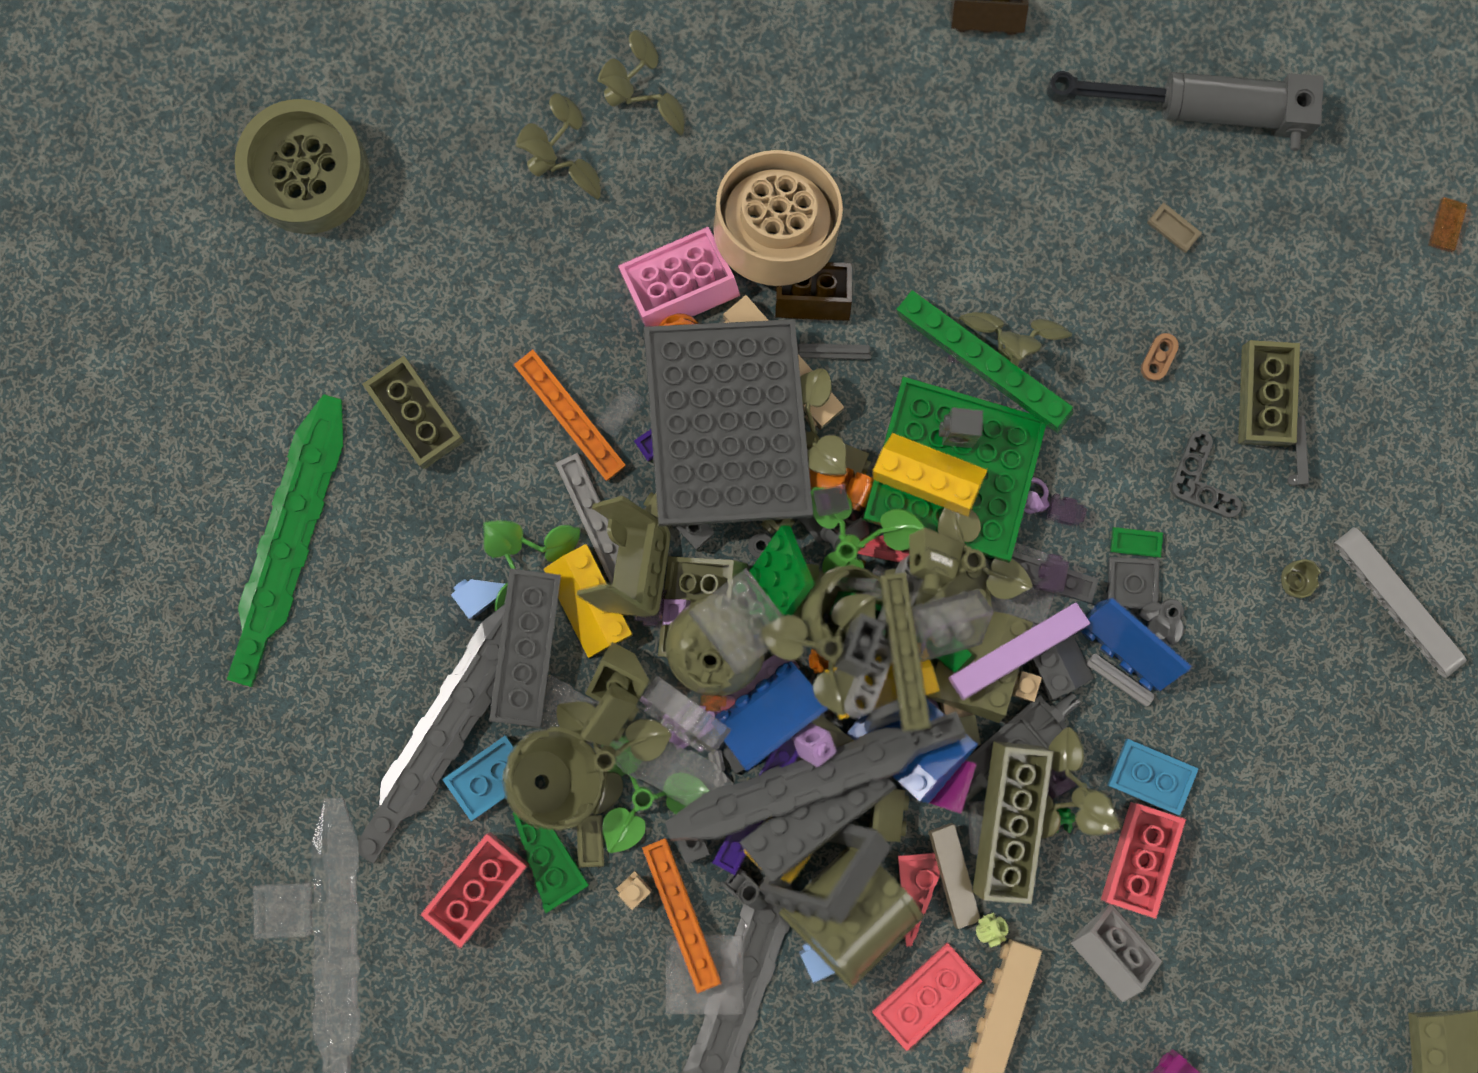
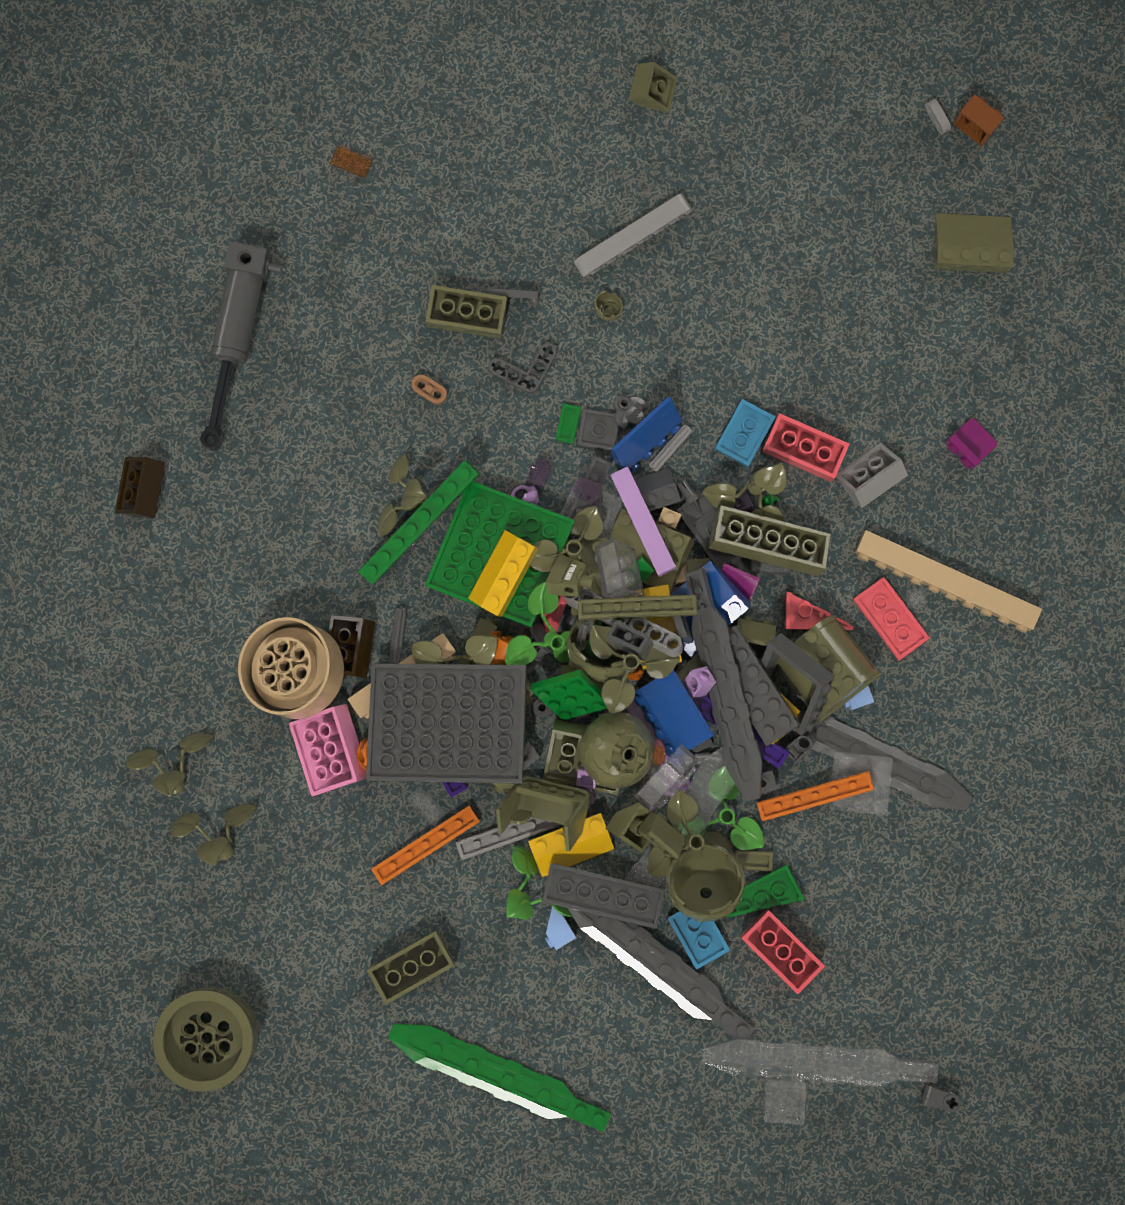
camera: 85 degrees left, 0 degrees up
(633, 890) = (793, 830): tan brick -> none
(735, 618) = (601, 732): clear plate -> none
(831, 500) = (516, 650): slope -> none
(859, 490) = (509, 628): orange brick -> none
(954, 875) = (804, 588): dark tan tile -> none
(961, 427) = (470, 545): dark grey brick -> none
(992, 930) = (846, 565): yellowish green gear -> none
(1174, 227) = (330, 366): dark tan tile -> none

